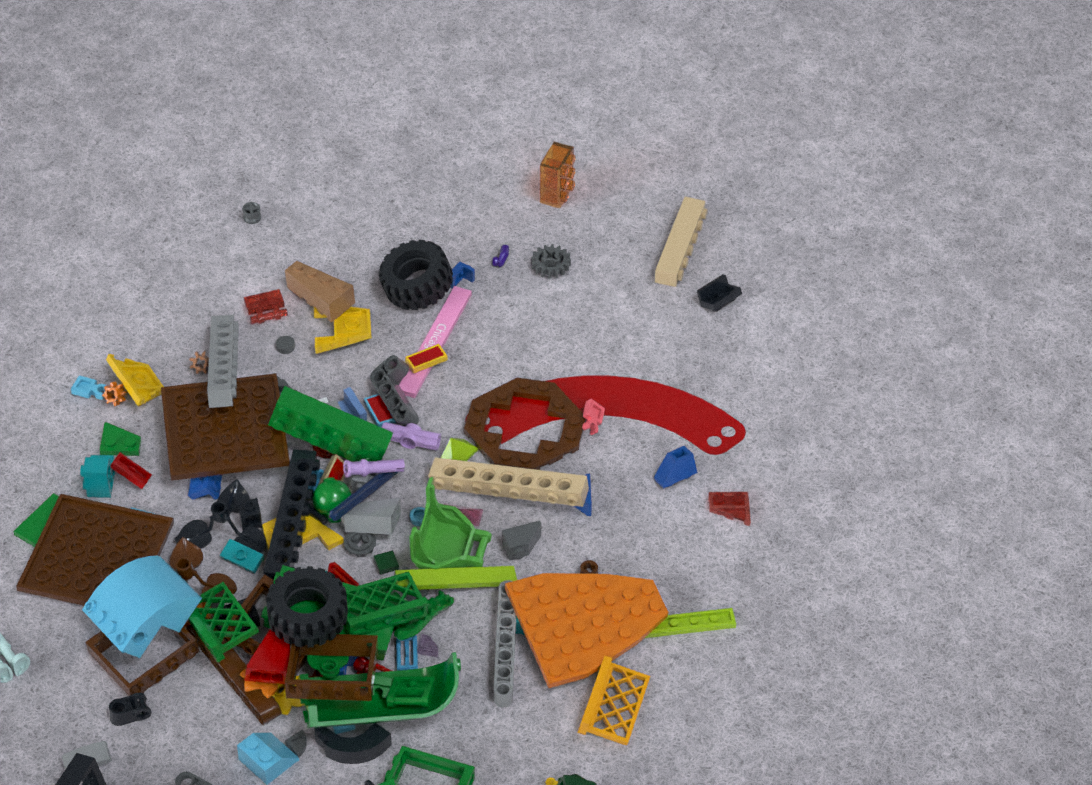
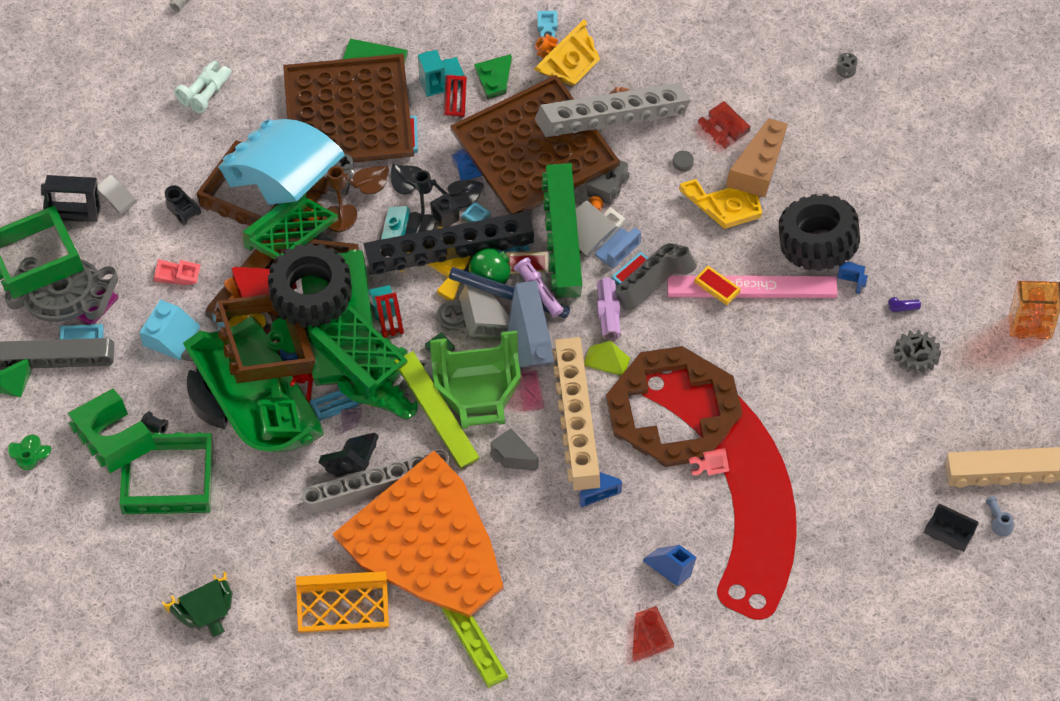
camera: 70 degrees right, 10 degrees up
(202, 735) = (183, 273): none -> coral slope
(264, 497) = (475, 213): none -> medium azure tile
(408, 485) = (529, 321): none -> sand blue wedge
(474, 647) = (352, 458): none -> black bracket
(589, 564) = (504, 533): reddish brown bush -> none
(724, 265) = (999, 527): none -> sand blue bar

